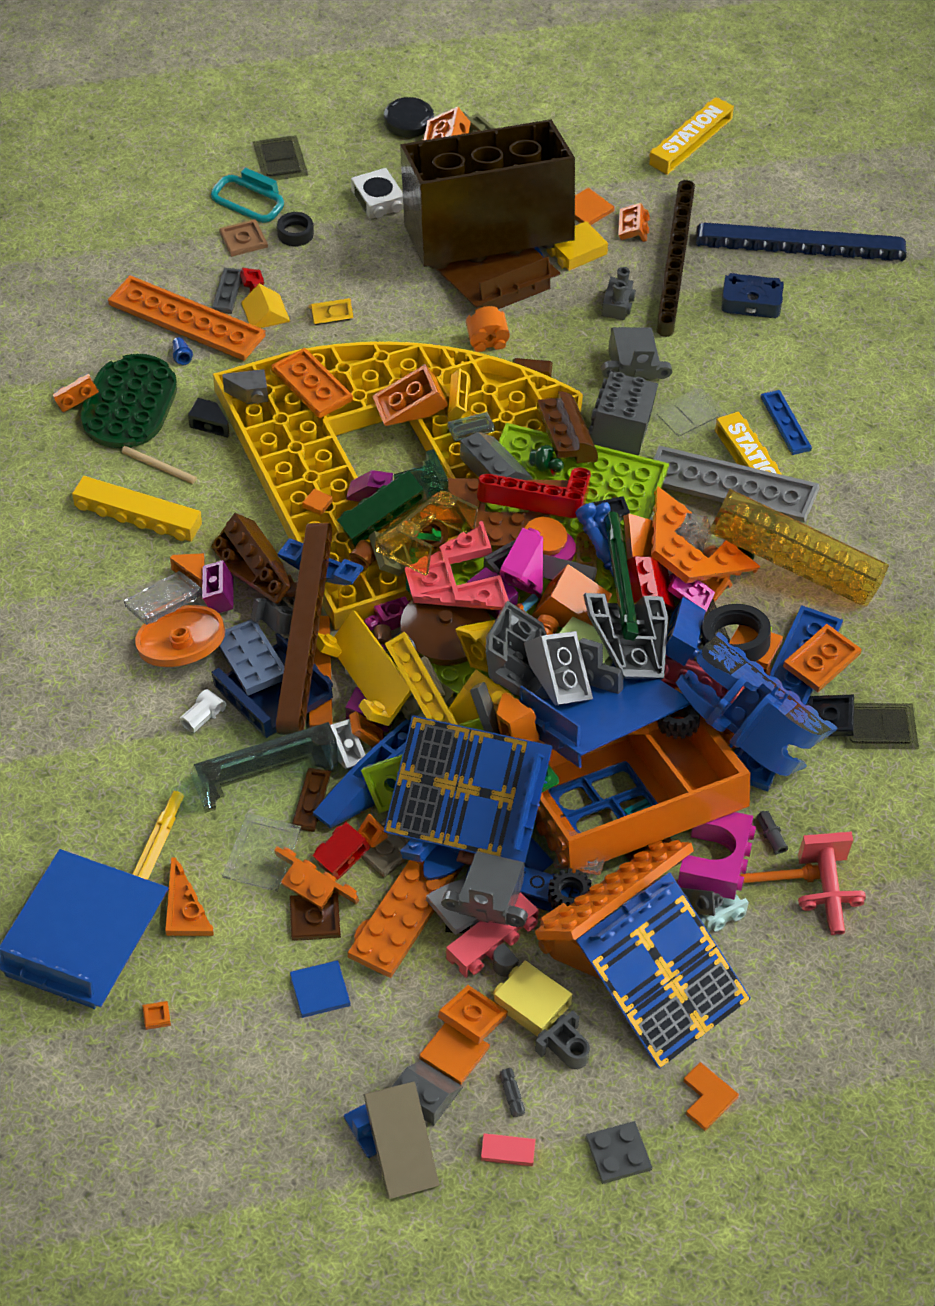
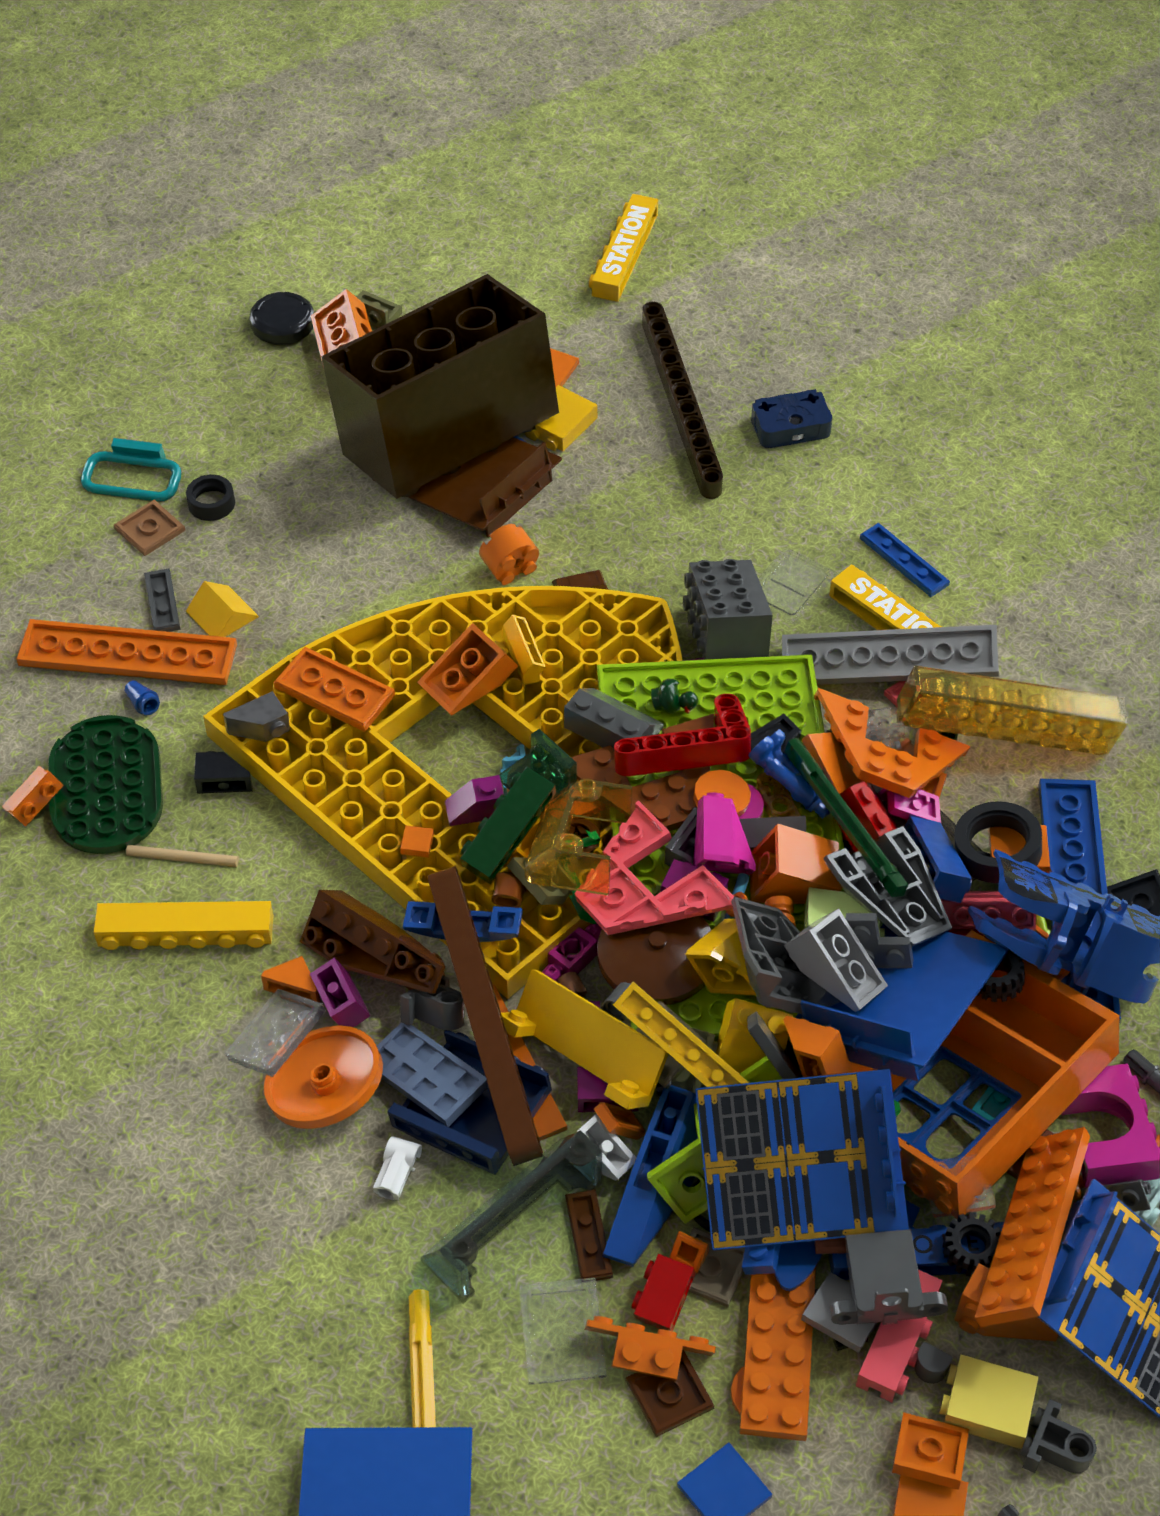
camera: 20 degrees left, 0 degrees up
(184, 911) = (504, 1451): orange wing -> none
(251, 278) = (187, 577): red plate -> none
(280, 158) = (147, 413): clear smoke piece -> none
(331, 311) = (305, 587): yellow panel -> none
(377, 193) = (291, 423): white brick -> none
(469, 425) = (555, 683): clear light blue tile -> none
(567, 428) = (677, 650): reddish brown brick -> none
(618, 295) = (640, 465): dark grey brick -> none
(633, 222) = (610, 370): orange bracket -> none
(635, 354) = (697, 532): dark grey piece -> none
(801, 241) = (810, 337): dark blue beam -> none
(822, 658) = (1100, 836): orange plate -> none

